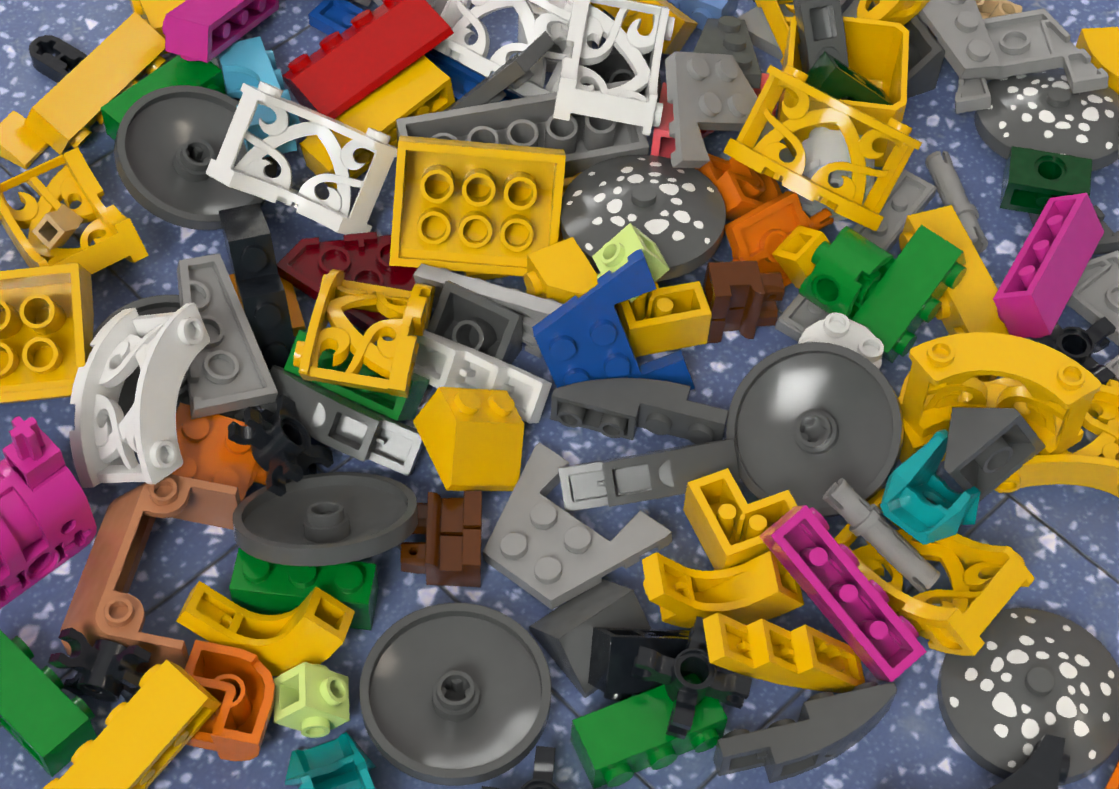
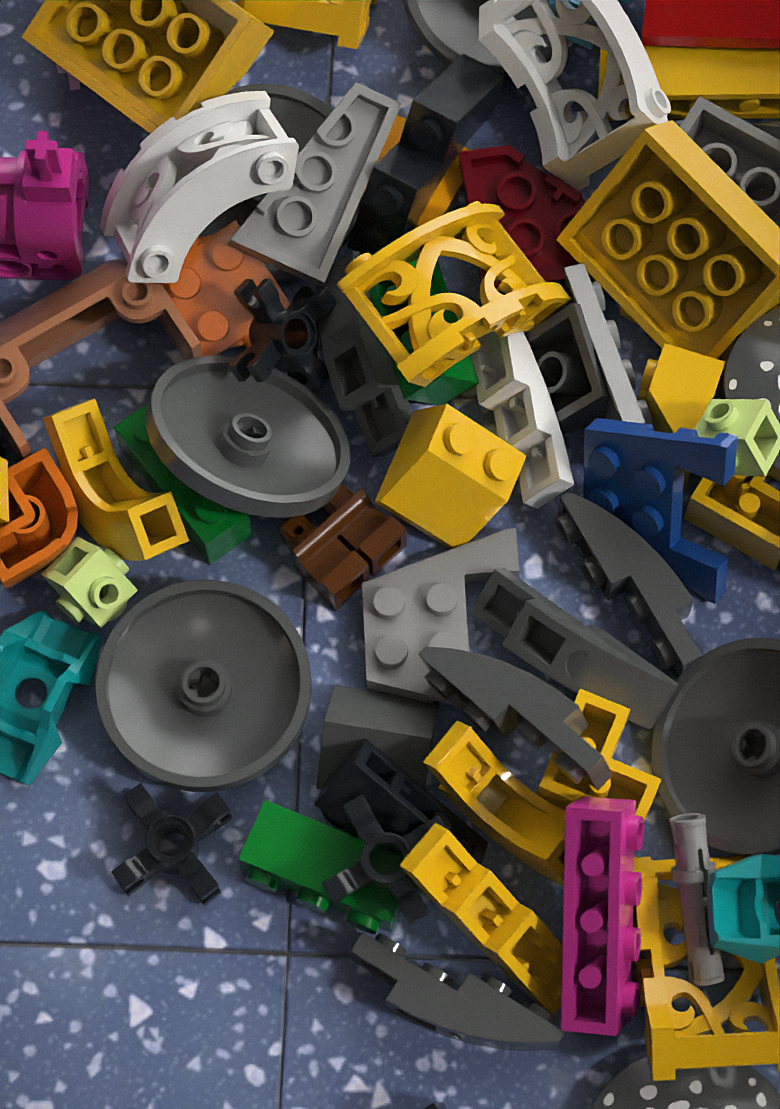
camera: 50 degrees right, 15 degrees up
(653, 519) = (516, 700): none -> dark grey slope

